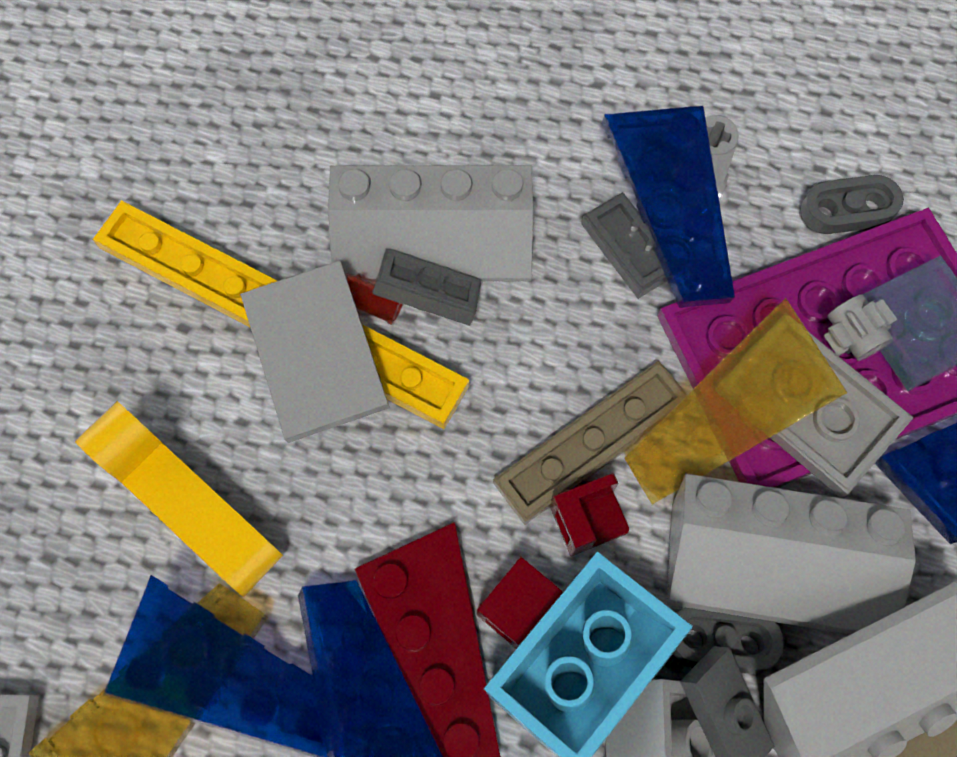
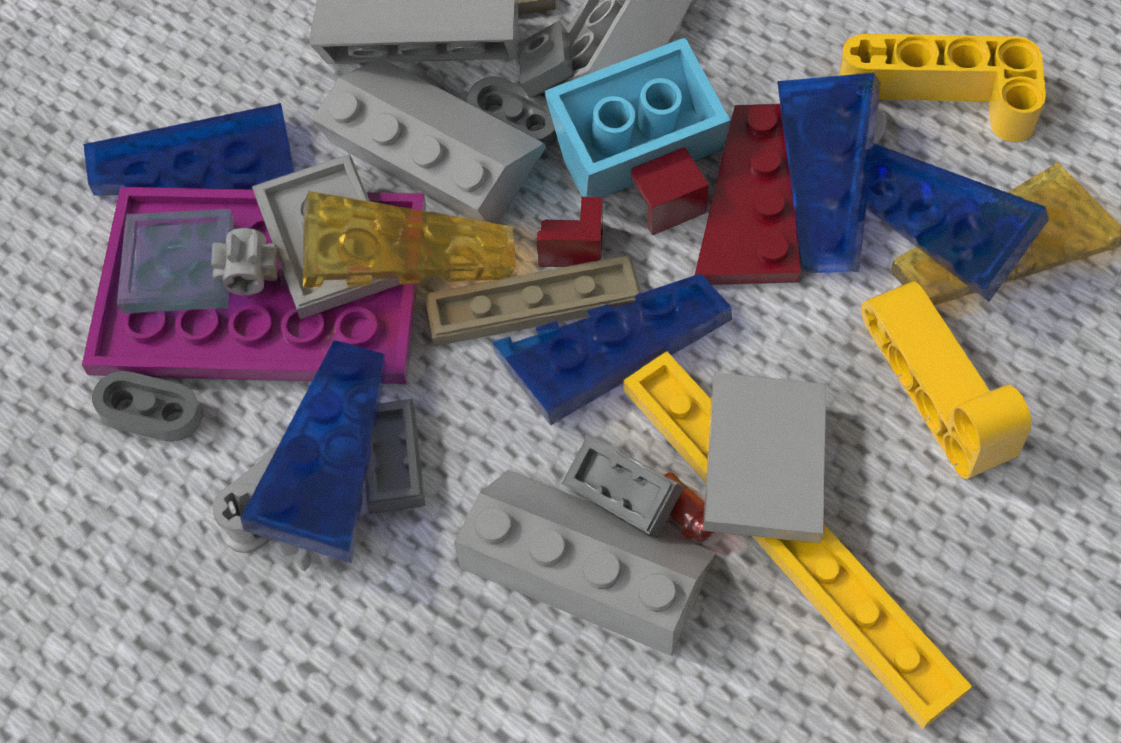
camera: 150 degrees left, 10 degrees down
(505, 411) = (588, 358): none -> clear blue wing

